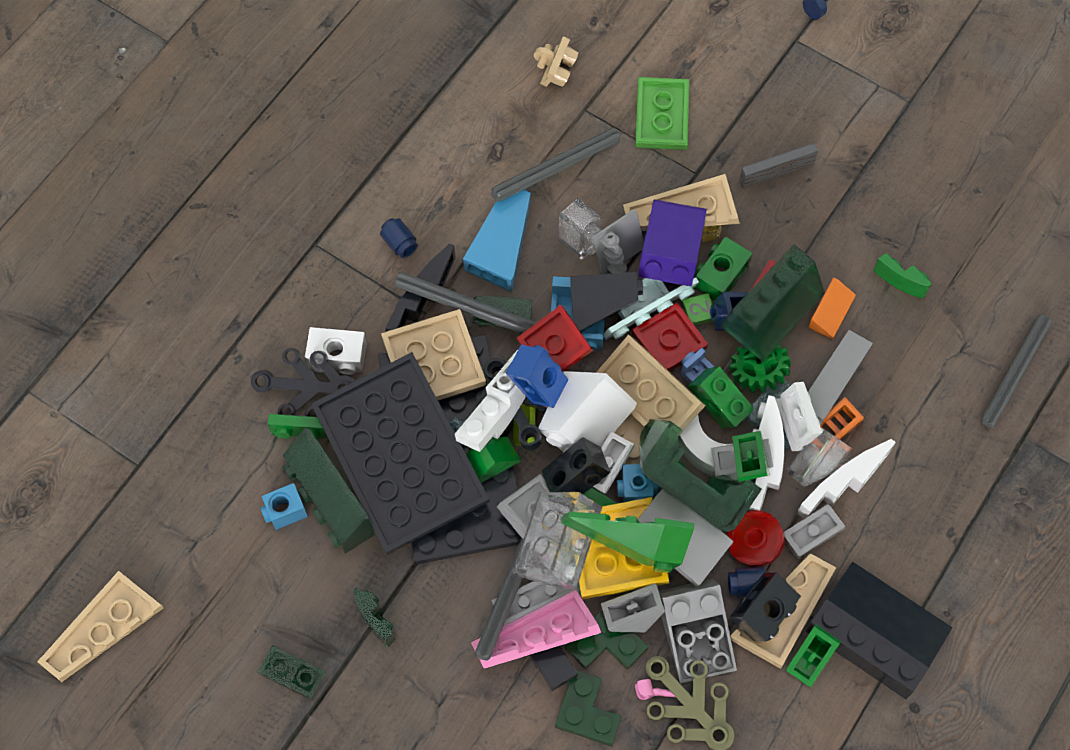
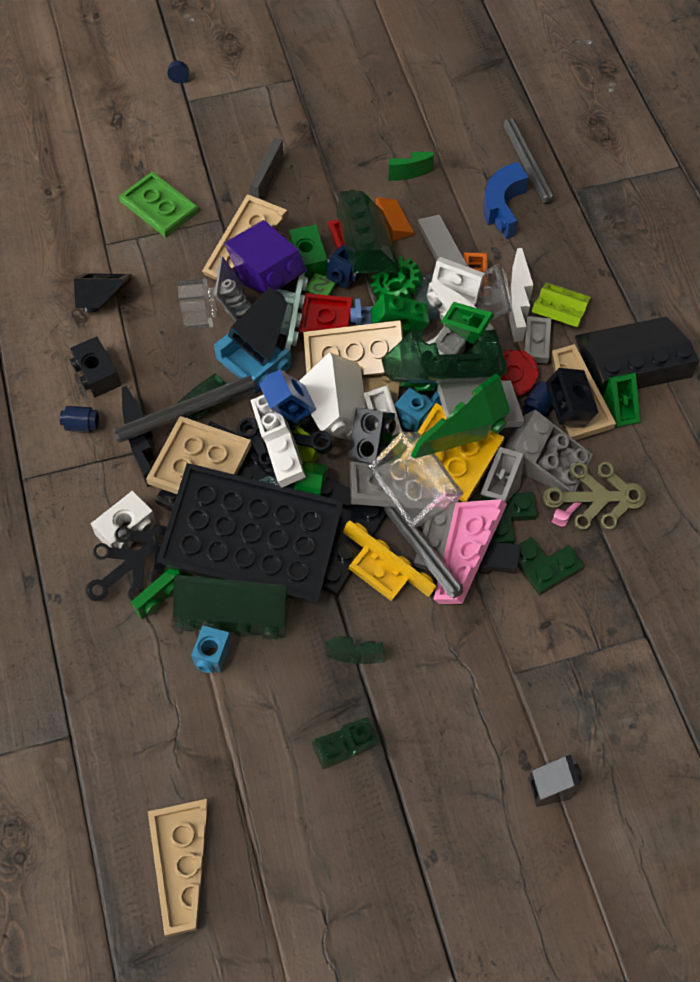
camera: 50 degrees left, 5 degrees down
(455, 221) = (95, 366): none -> black brick
(461, 578) = (382, 567): none -> yellow bracket
(500, 241) = (153, 361): dark azure slope -> none
(529, 141) = (96, 289): none -> black slope
(554, 165) = (132, 284): dark grey axle -> none
(559, 337) = (259, 365): red plate -> none
(561, 54) = (52, 231): tan hips -> none
(873, 524) = (561, 304): none -> lime slope
(950, 371) = (502, 186): none -> blue arch

